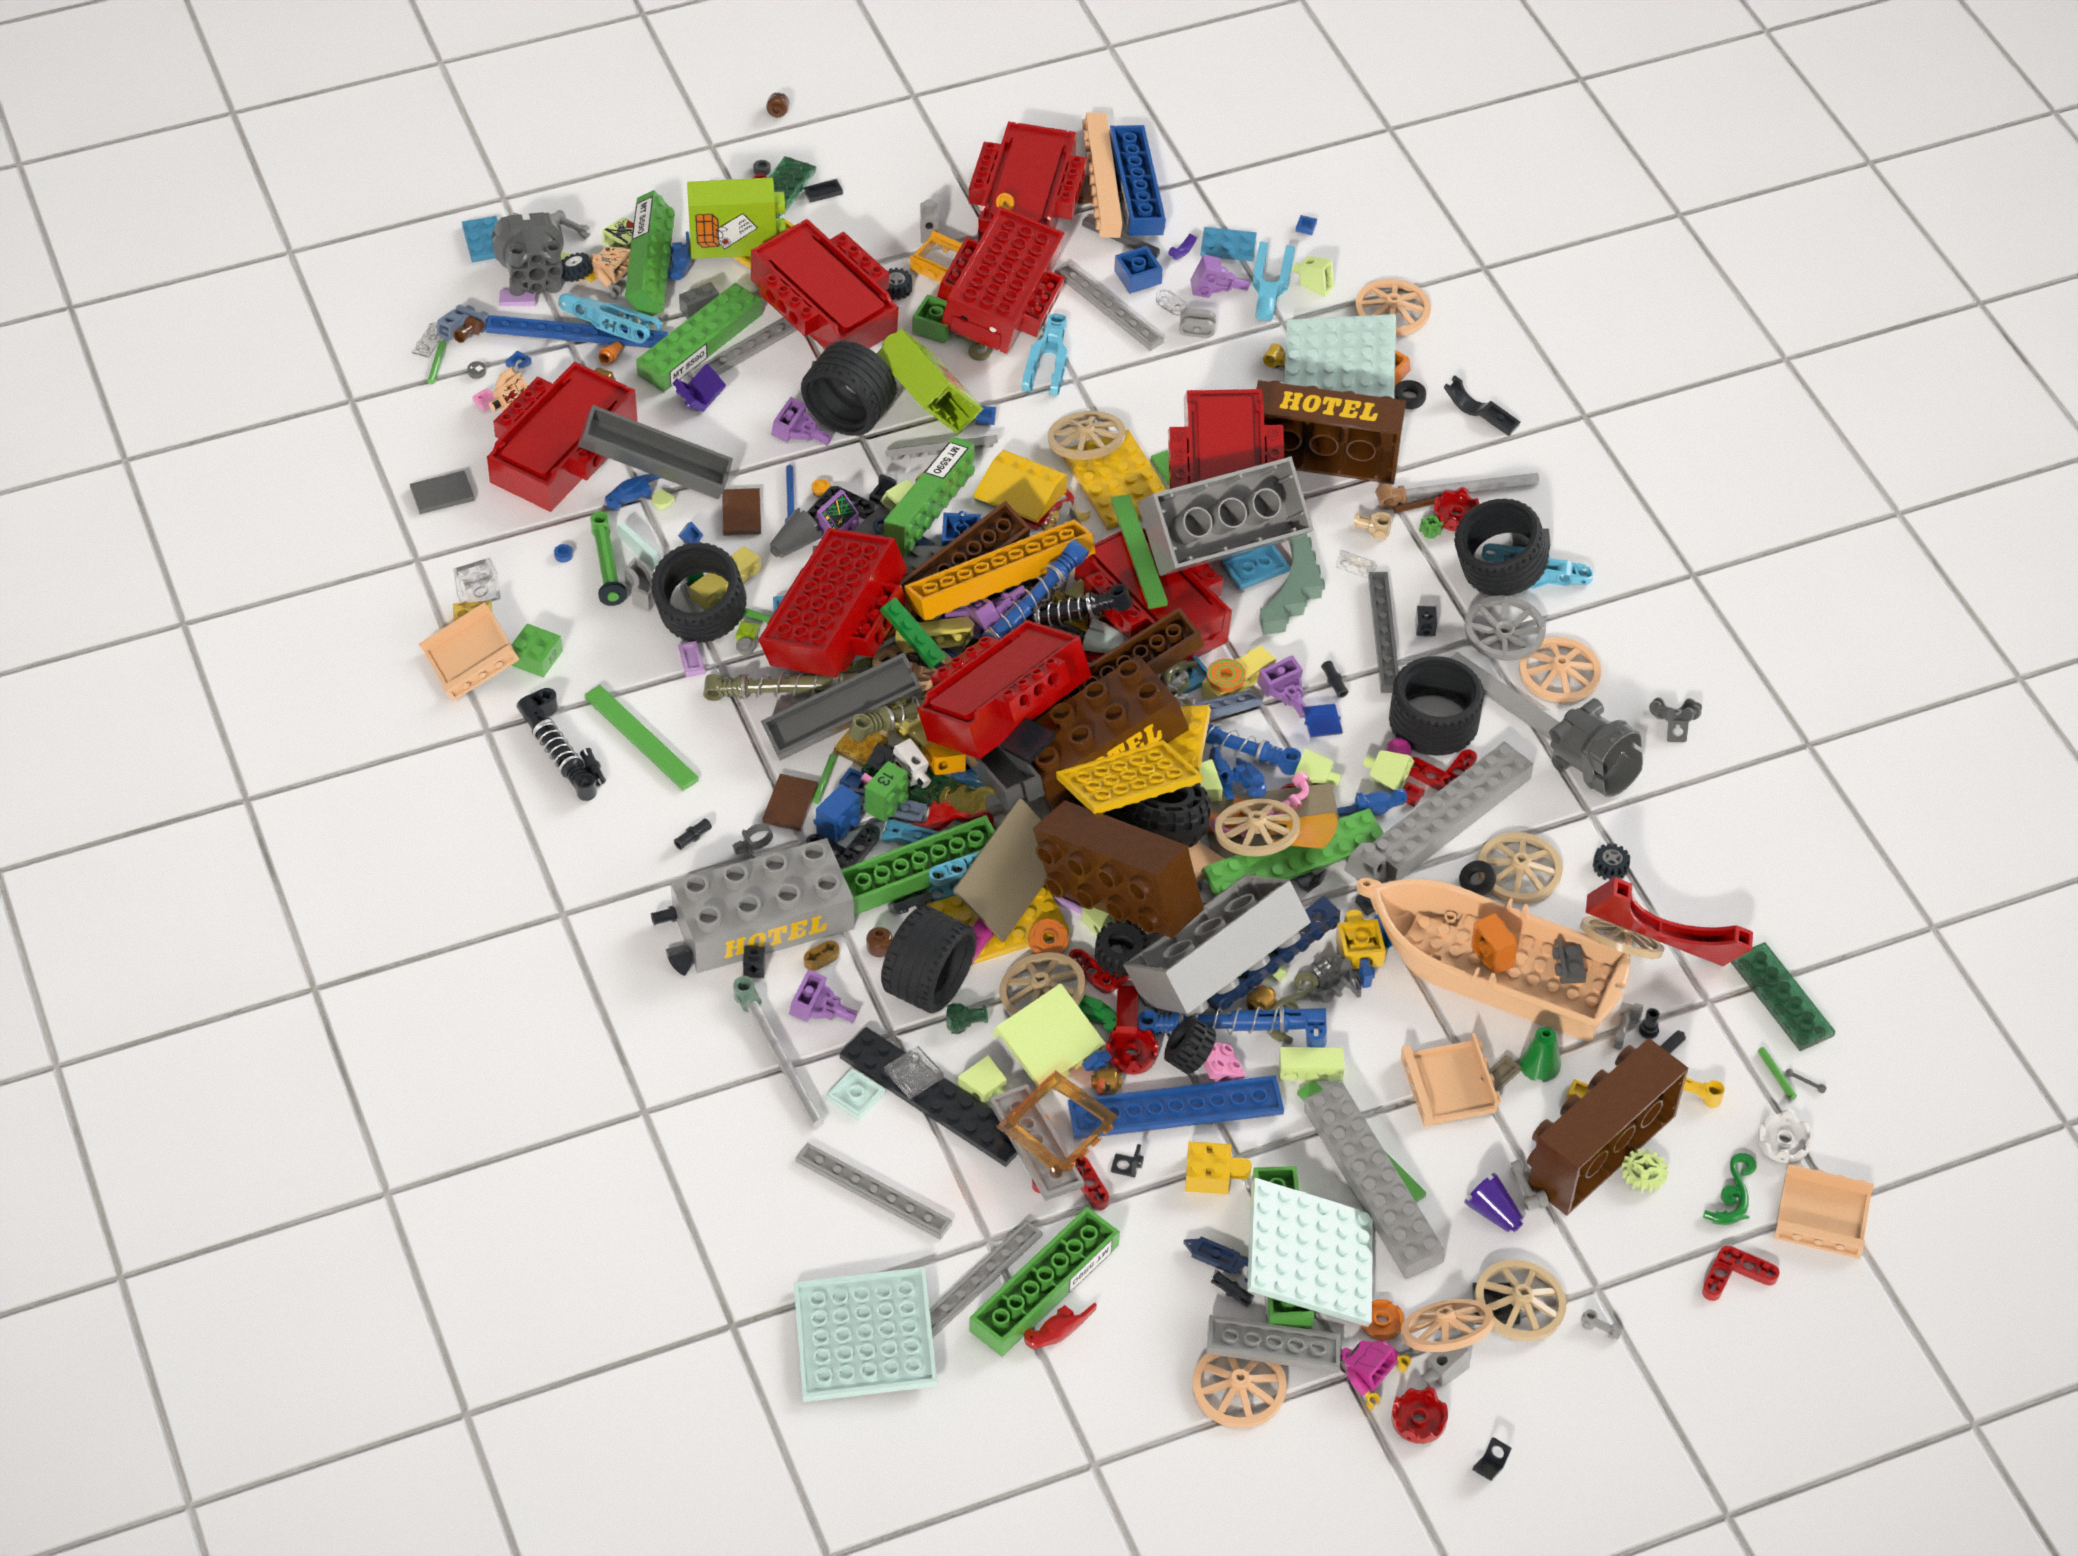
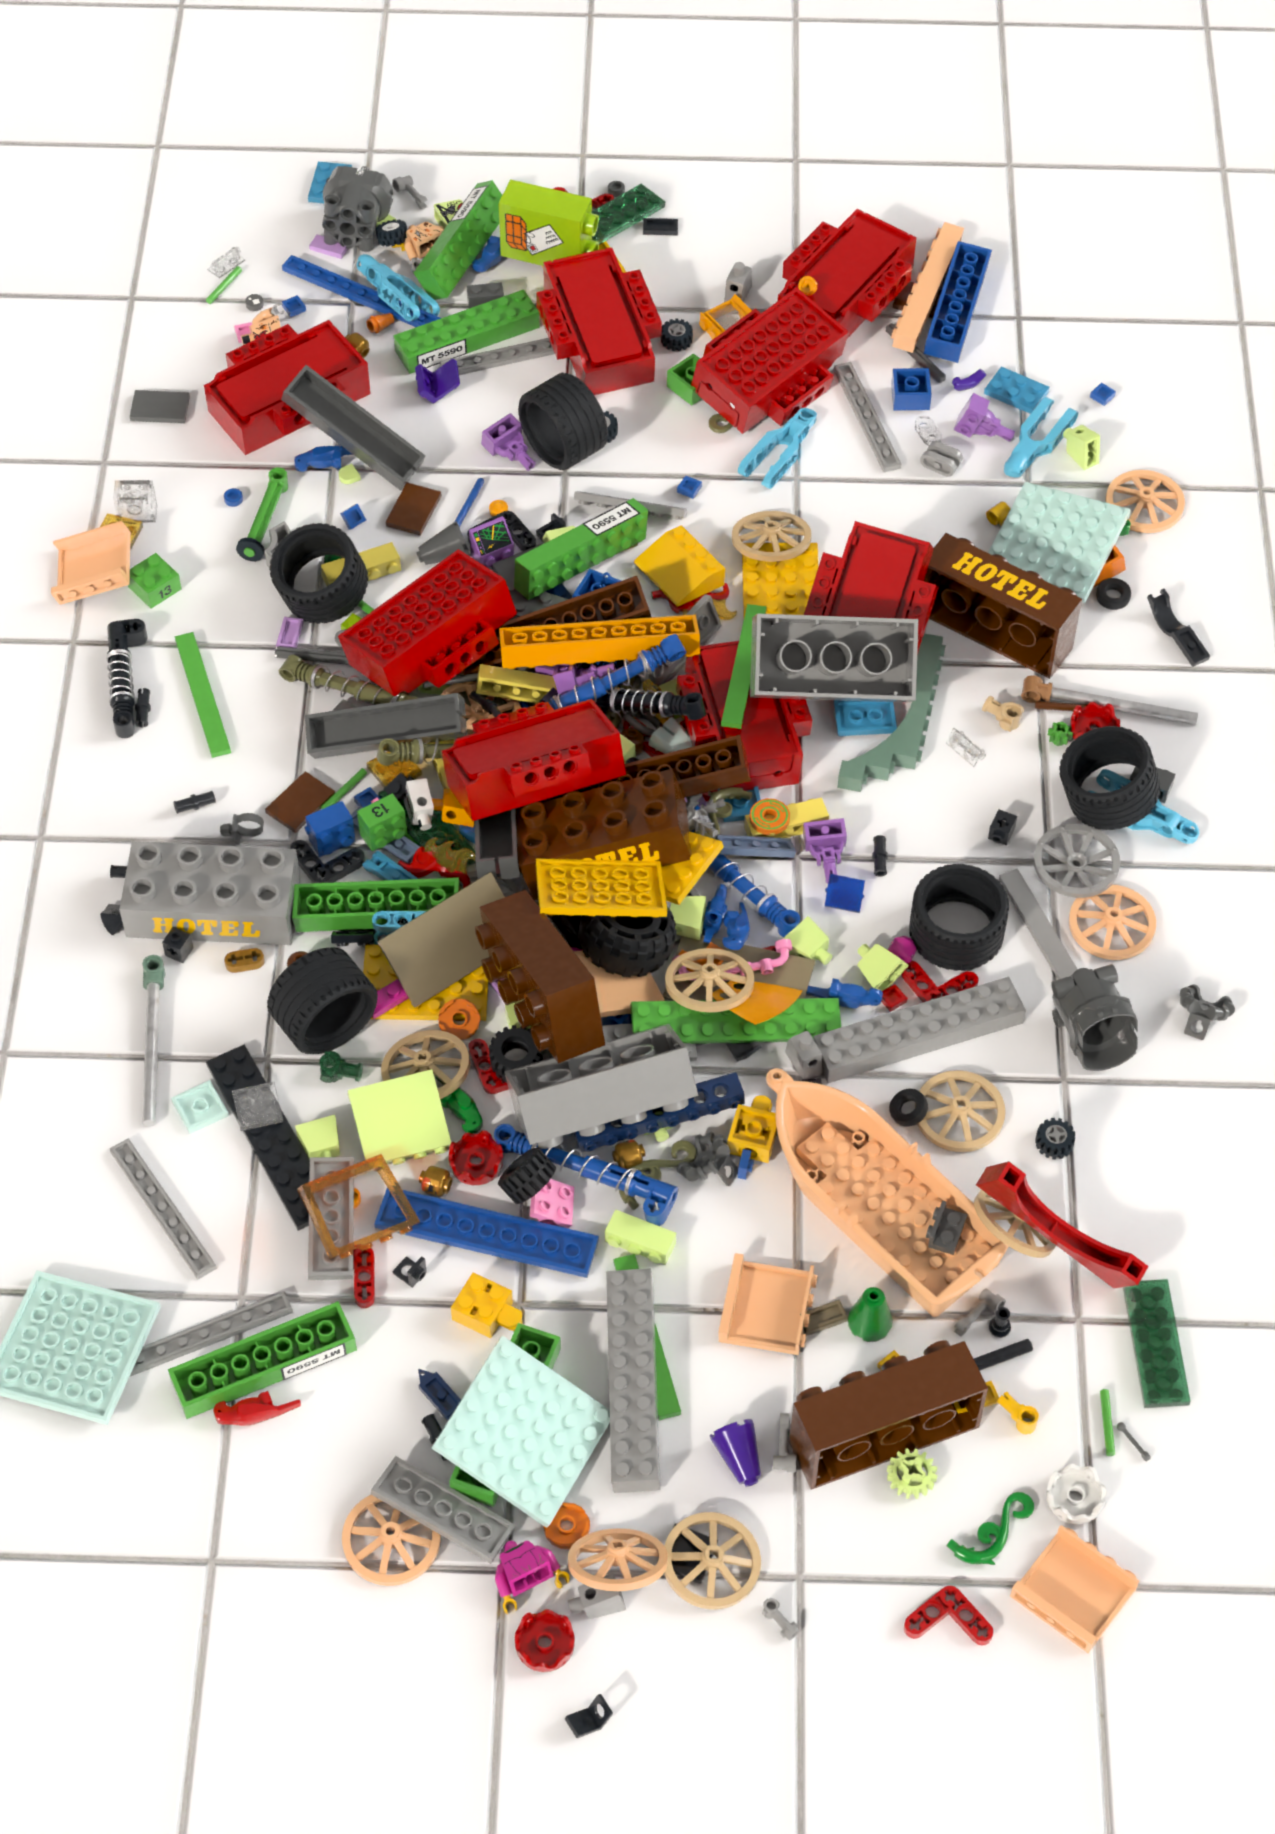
camera: 25 degrees right, 5 degrees up
(461, 322) = (262, 254): sand blue hips -> none
(638, 545) = (299, 506): light aqua tile -> none
(729, 669) = (312, 655): none -> dark grey axle
(777, 104) = (662, 133): reddish brown head -> none
(818, 1001) = (212, 1003): medium lavender brick -> none
(913, 633) = (483, 676): green plate -> none
(929, 381) = (642, 437): lime brick -> none
(1028, 740) = (526, 818): black tile -> none
(1096, 1061) = (434, 1158): blue plate -> none
(1126, 1009) = (488, 1118): red tile -> none
(1383, 630) = (958, 816): dark grey plate -> none
(1494, 944) = (877, 1183): orange brick -> none

